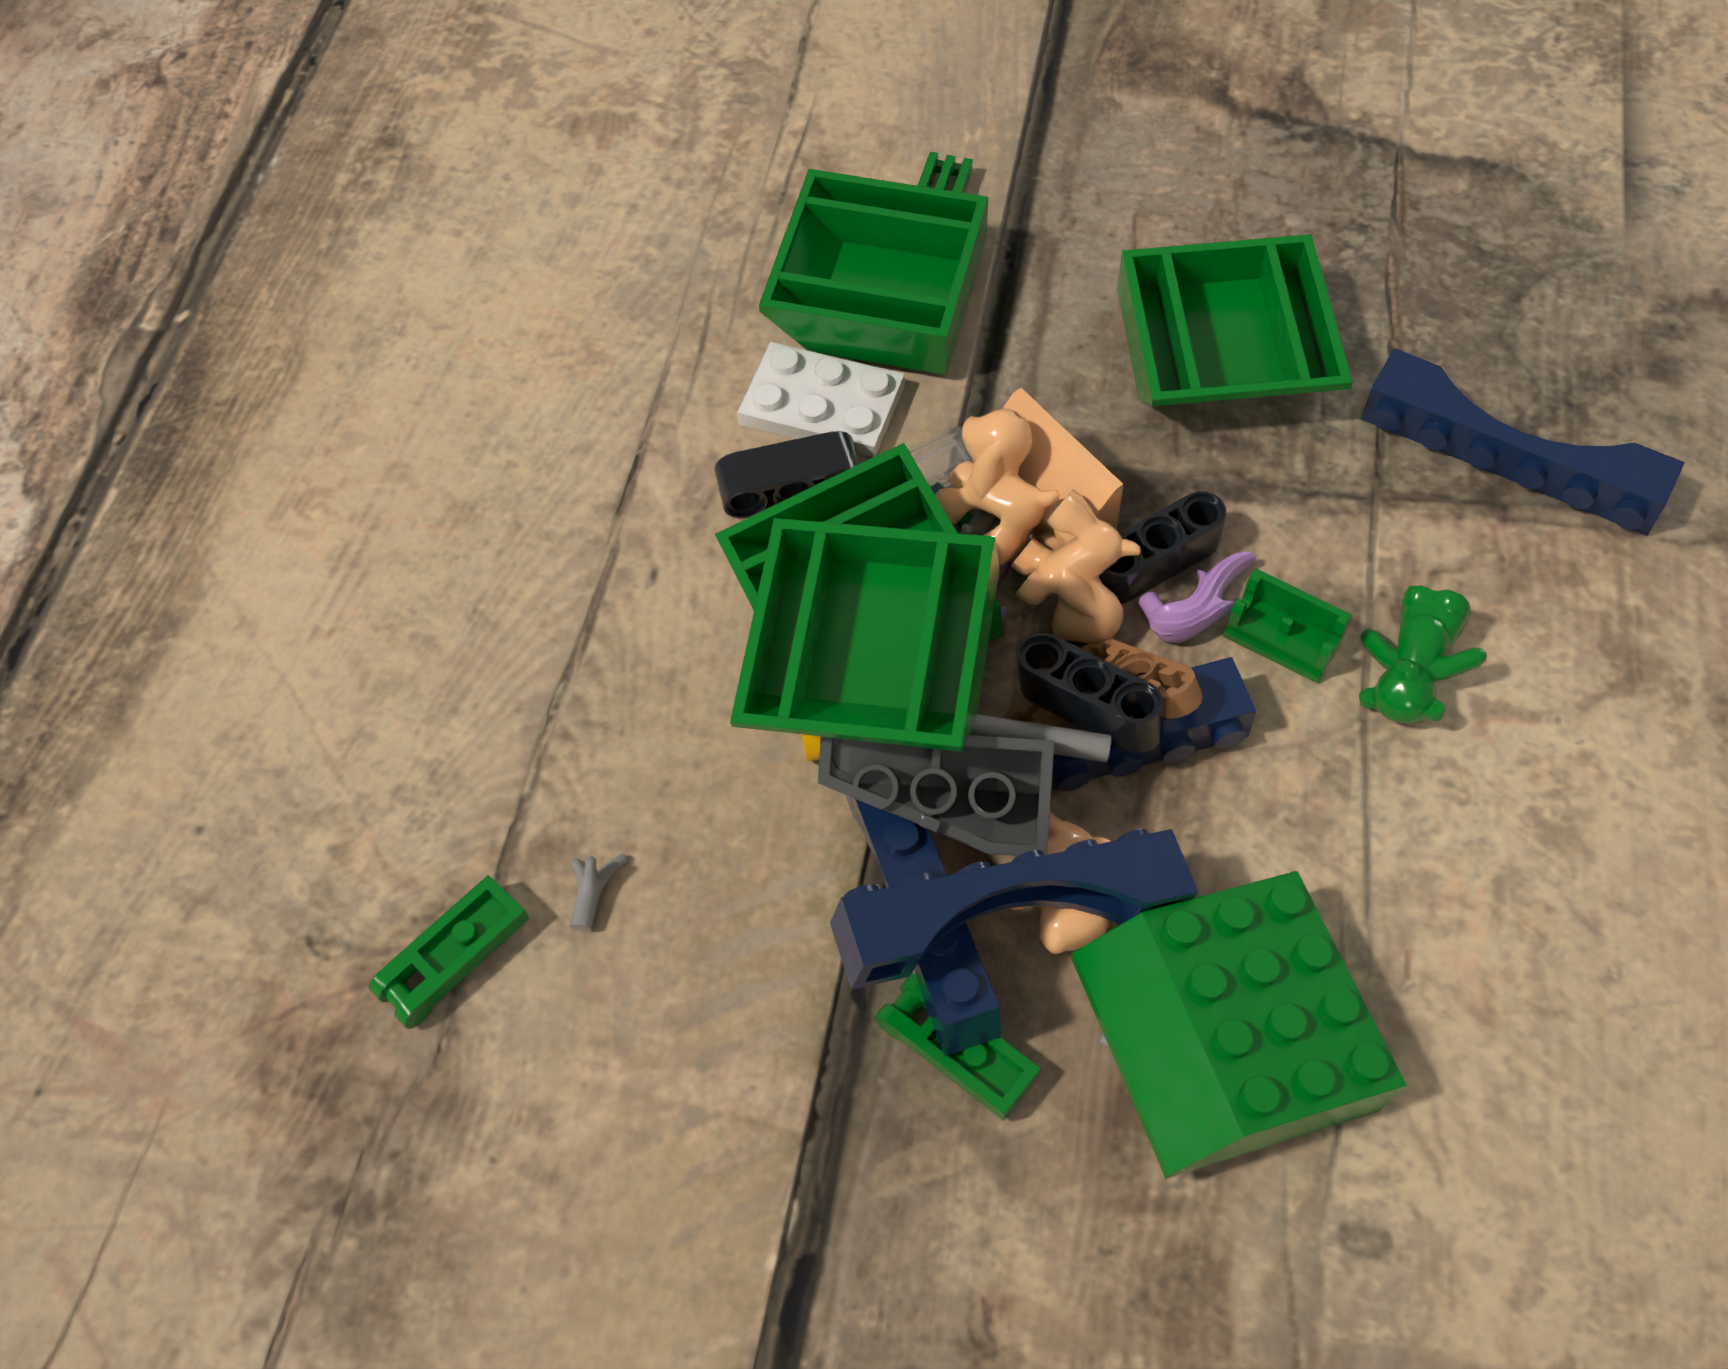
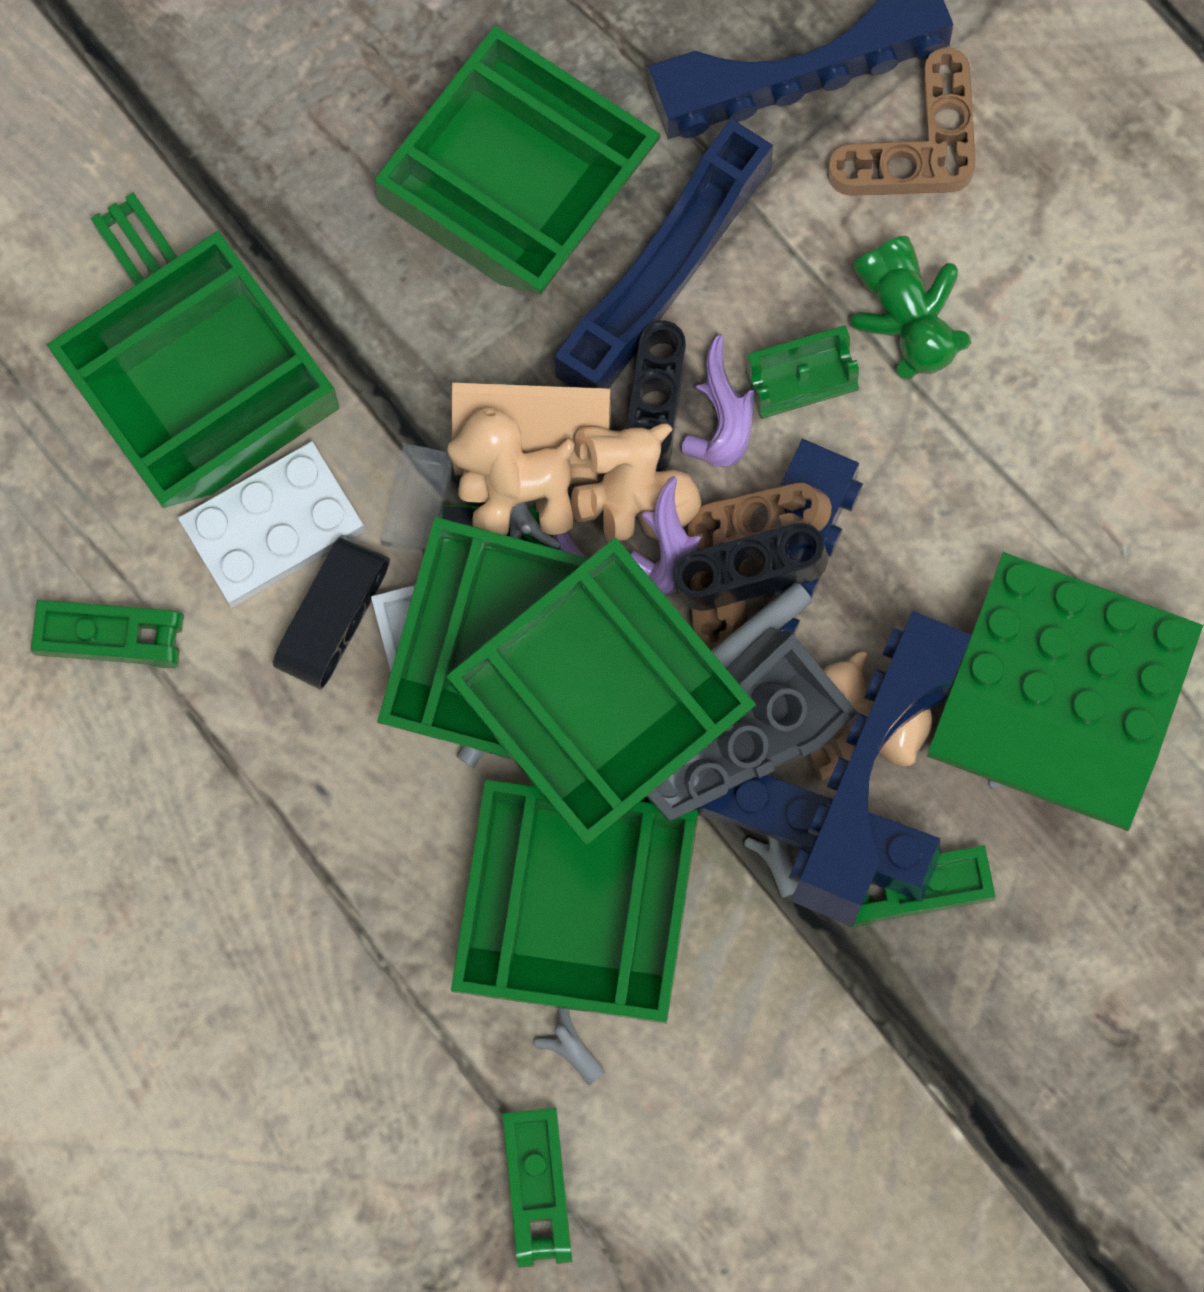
camera: 50 degrees left, 15 degrees up
(647, 363) = (105, 633): none -> green plate
(701, 806) = (573, 919): none -> green slope
(1063, 613) = (671, 537): none -> lavender piece
(1363, 462) = (706, 208): none -> dark blue arch
(1547, 582) = (925, 155): none -> medium nougat beam

